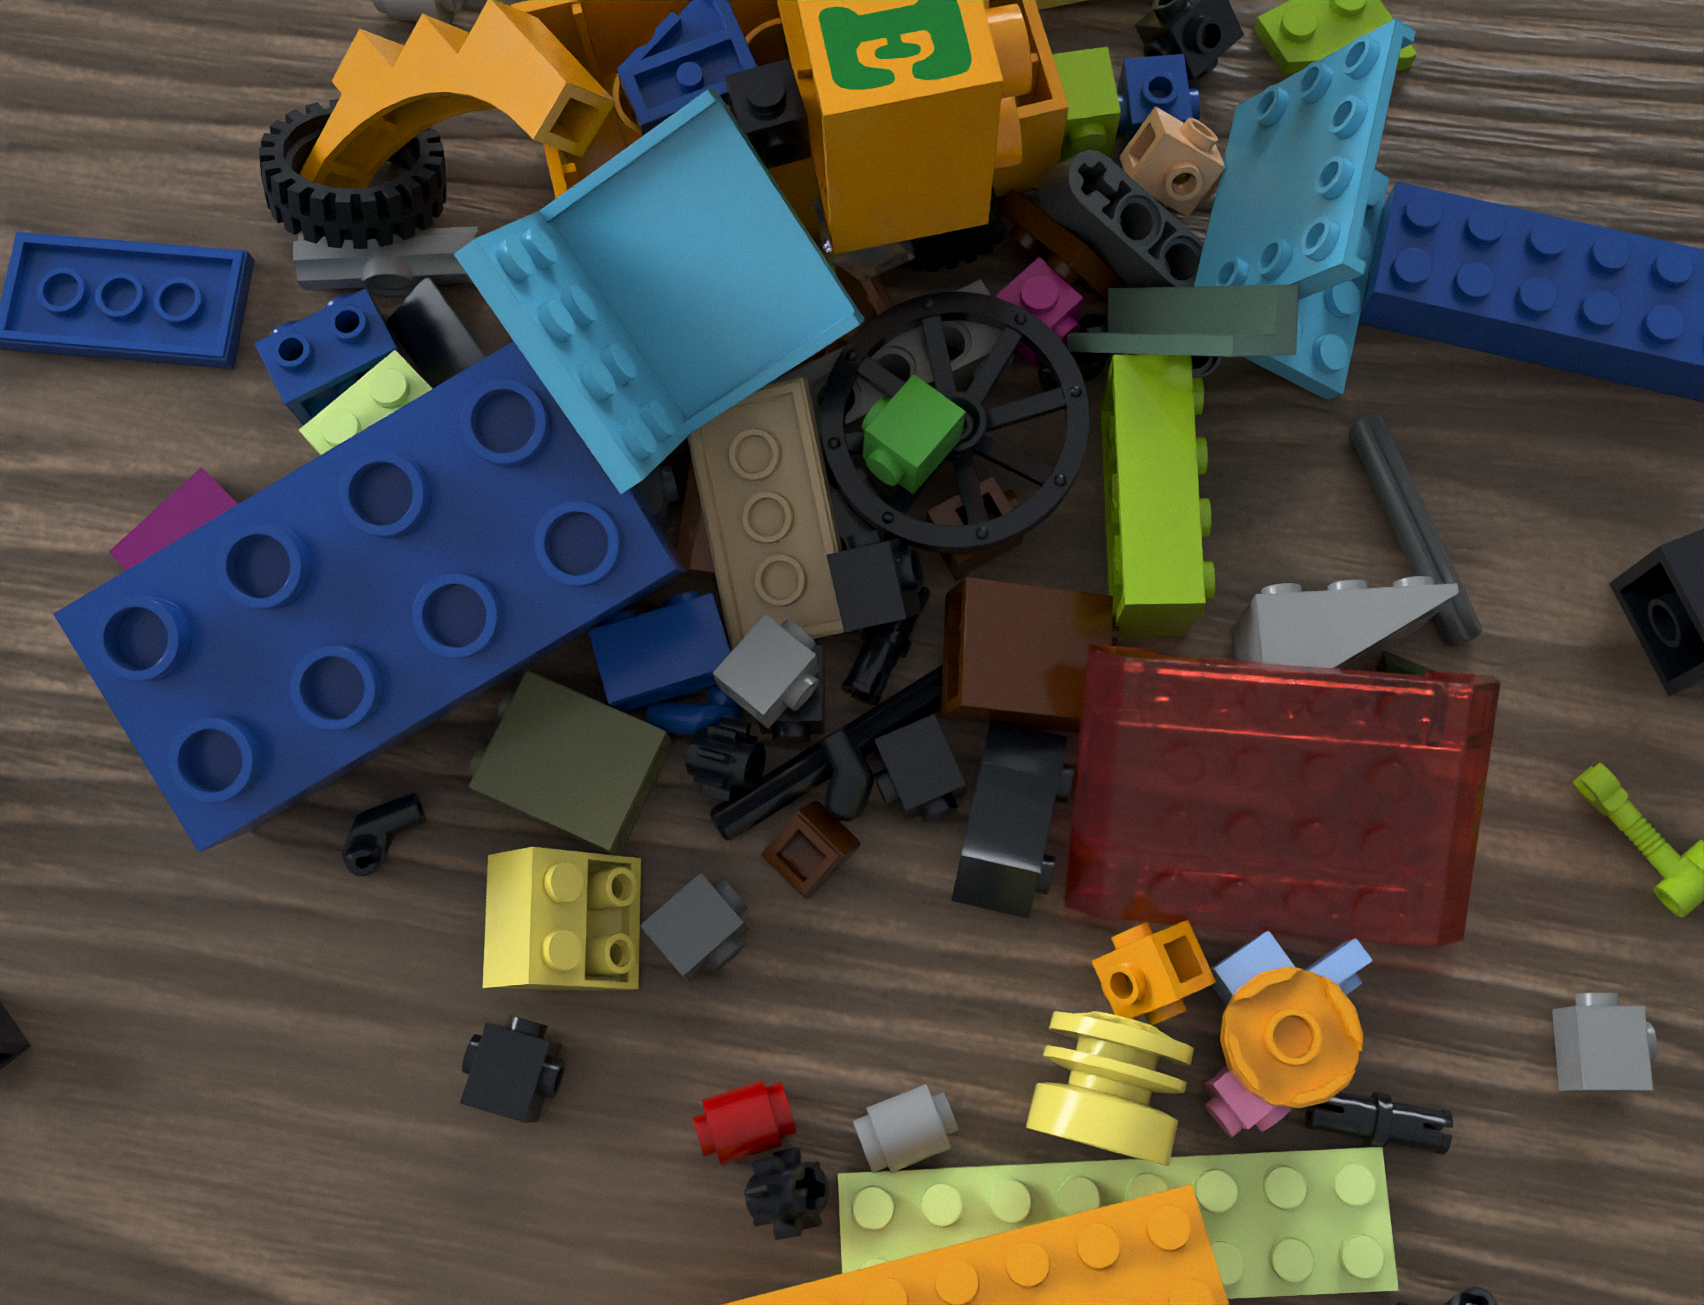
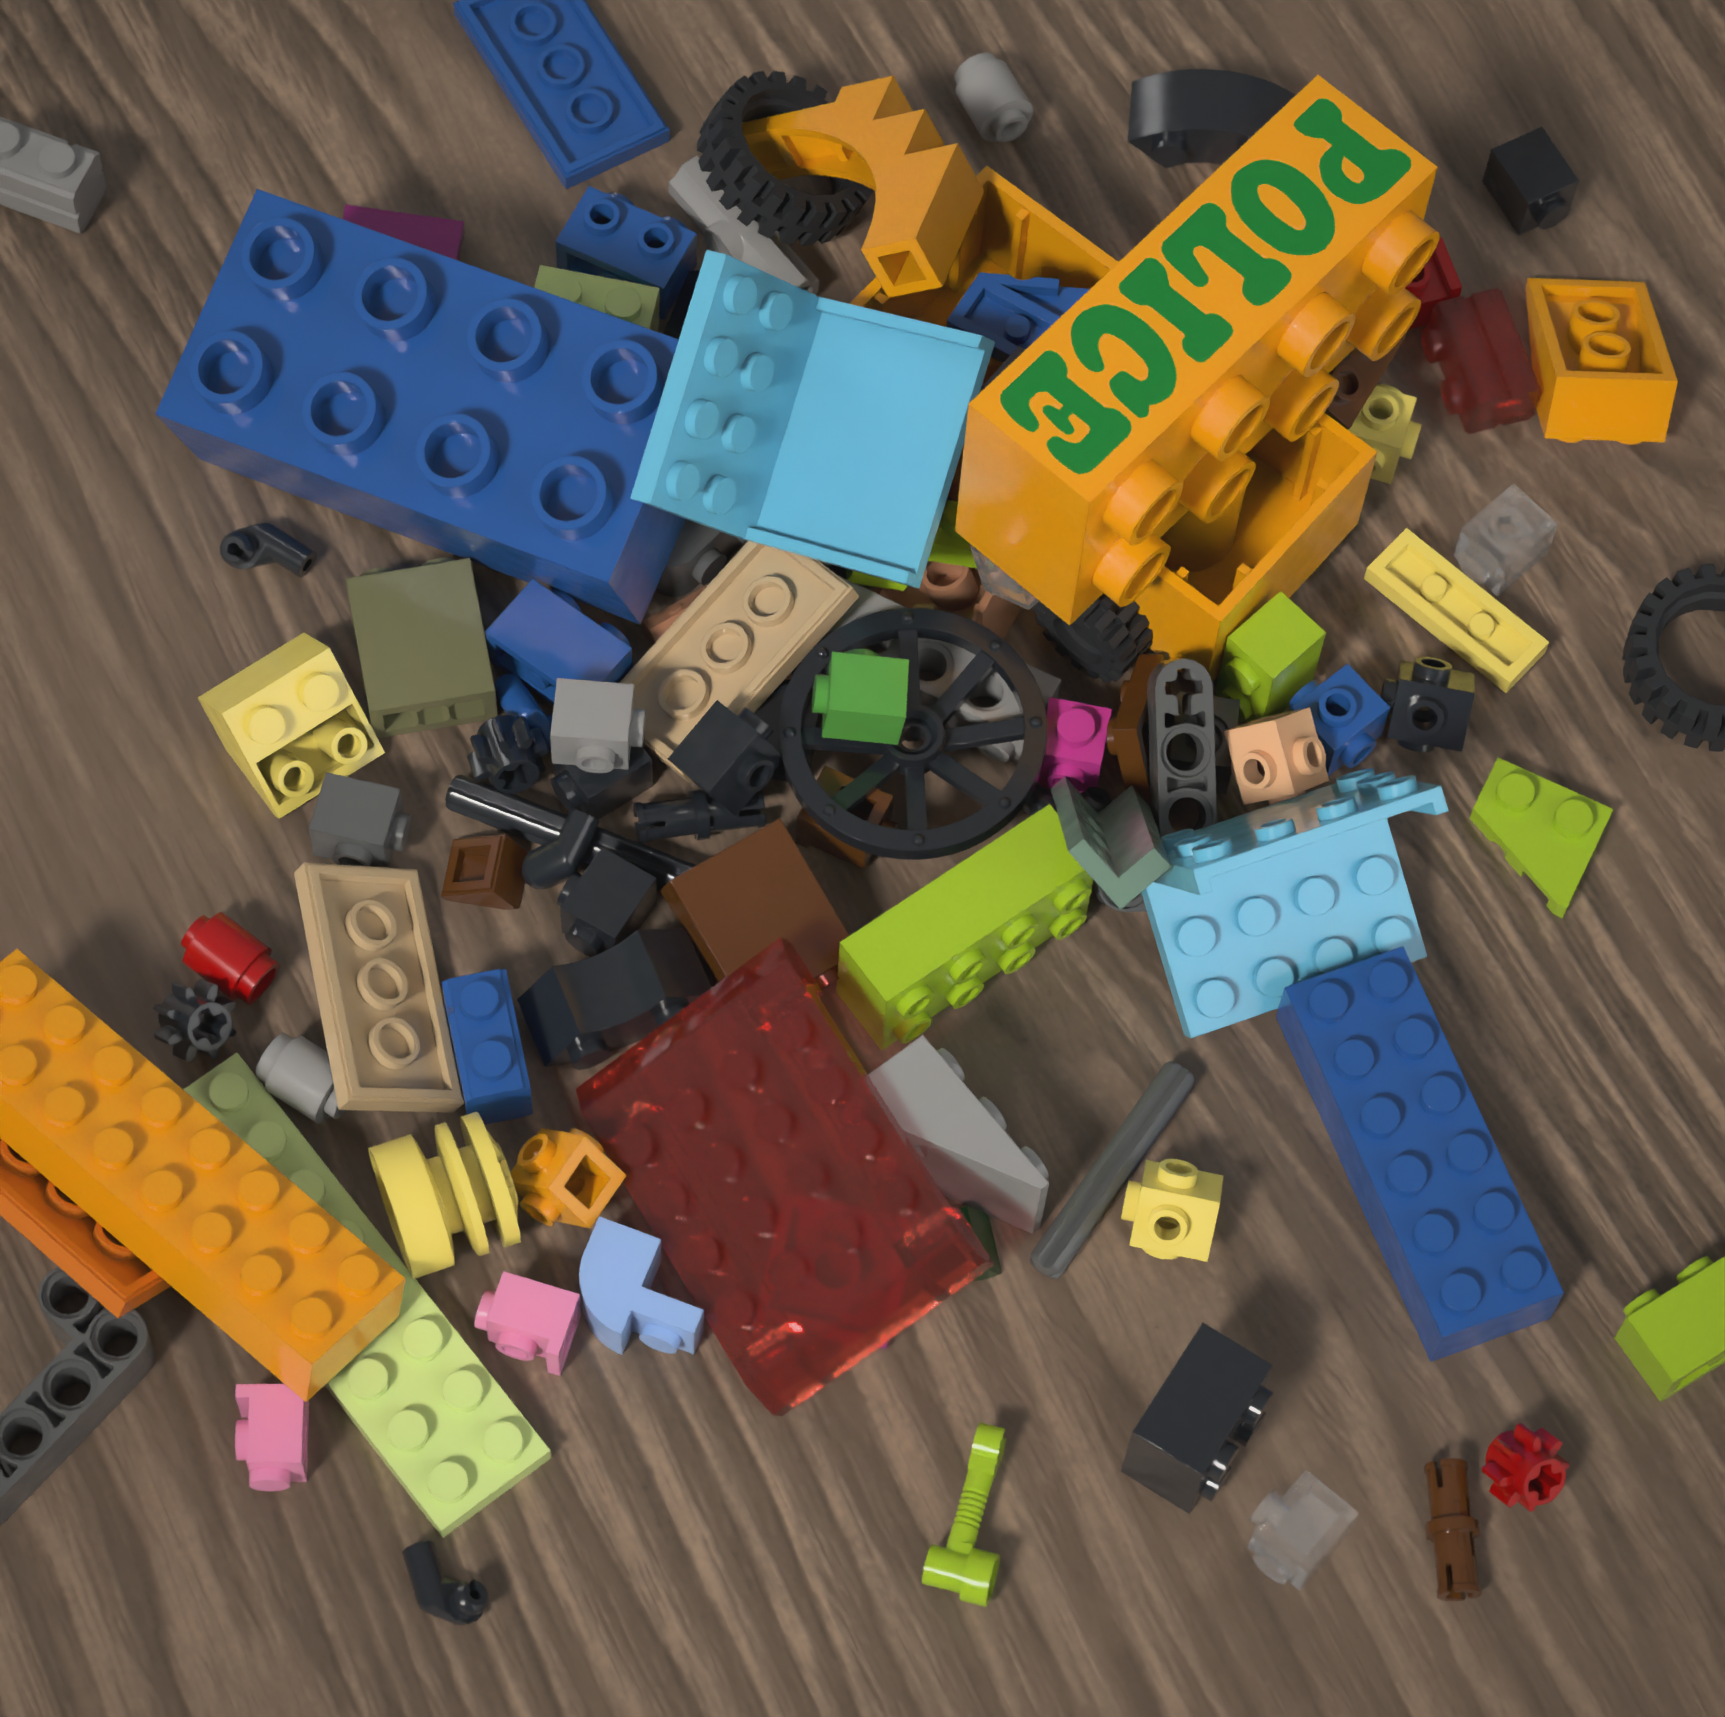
camera: 45 degrees right, 10 degrees down
(512, 1069) = (150, 763): black brick -> none
(867, 1014) = (378, 988): none -> tan tile
(985, 956) = (487, 1046): none -> blue brick
(1291, 1037) = (582, 1302): light orange tile -> none
(1383, 1121) = (572, 1437): black pin -> none
(1496, 504) = (1173, 1209): none -> light yellow brick
(1603, 1045) = (759, 1572): light grey brick -> none

